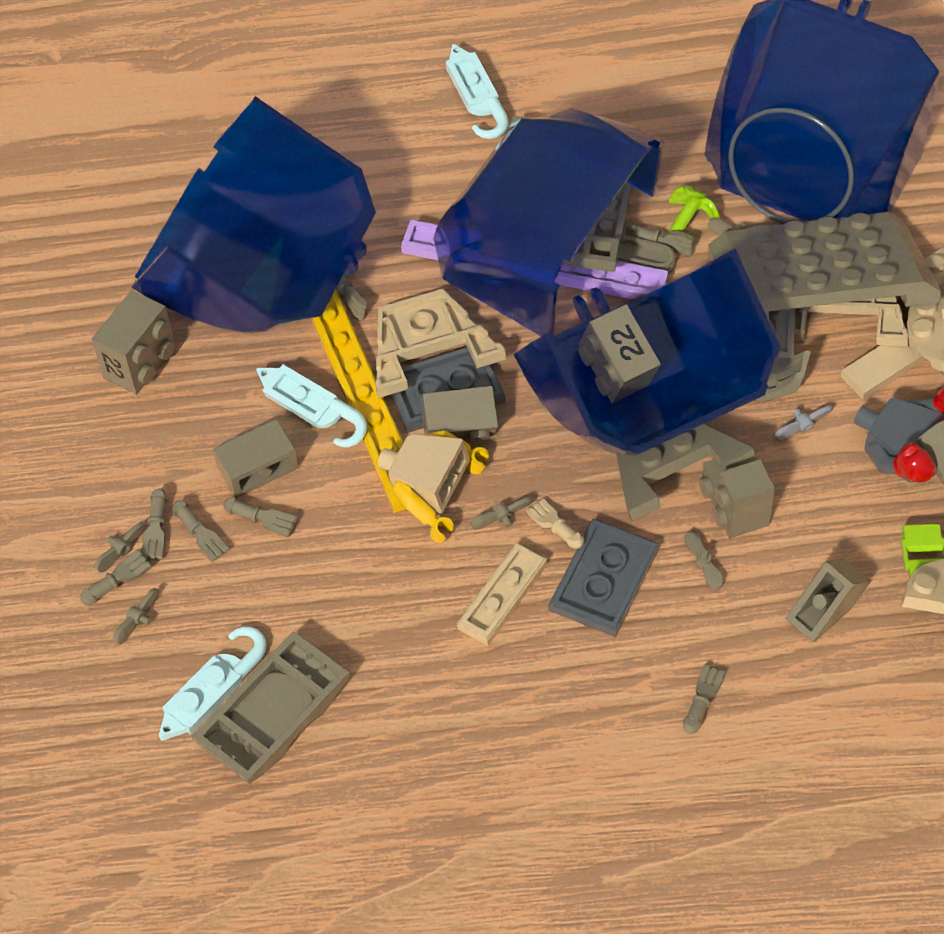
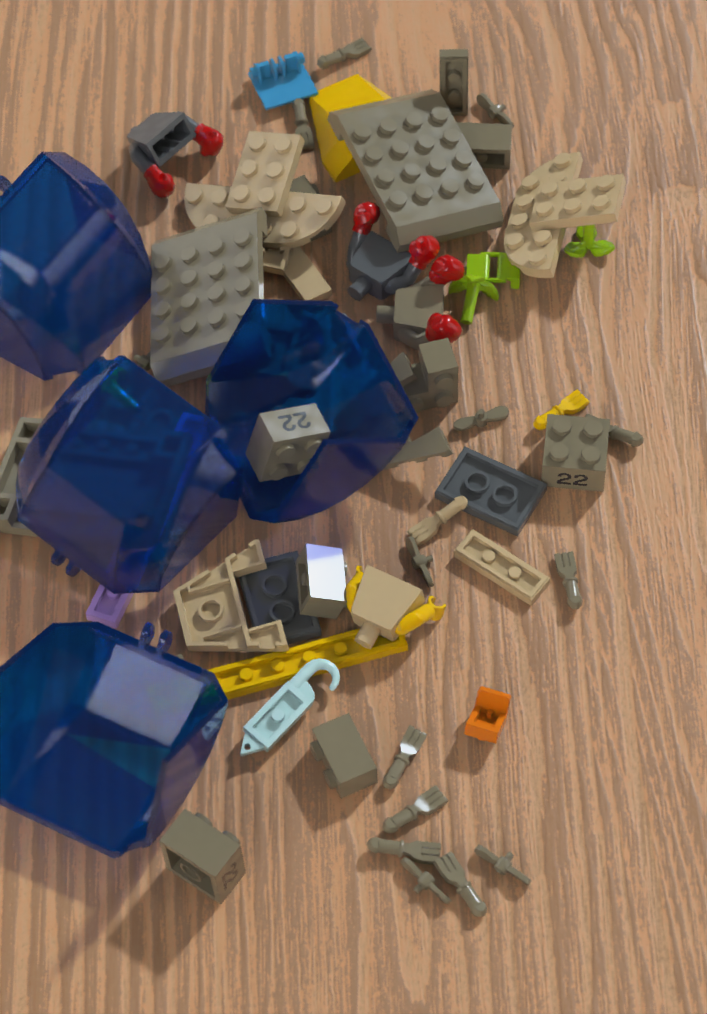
camera: 85 degrees left, 0 degrees up
(210, 687) = (581, 801): light aqua plate -> none
(272, 708) = (609, 746): dark tan slope -> none
(303, 586) = (488, 715): none -> orange bracket
(503, 660) = (567, 570): none -> dark tan piece
(658, 654) = (575, 452): none -> dark tan brick
(735, 652) = (569, 405): none -> yellow piece
(805, 115) = (73, 284): dark grey piece -> none
(828, 598) = (529, 333): dark tan slope -> none
(842, 483) = (419, 307): none -> dark tan torso
(889, 533) = (473, 285): none -> lime plant

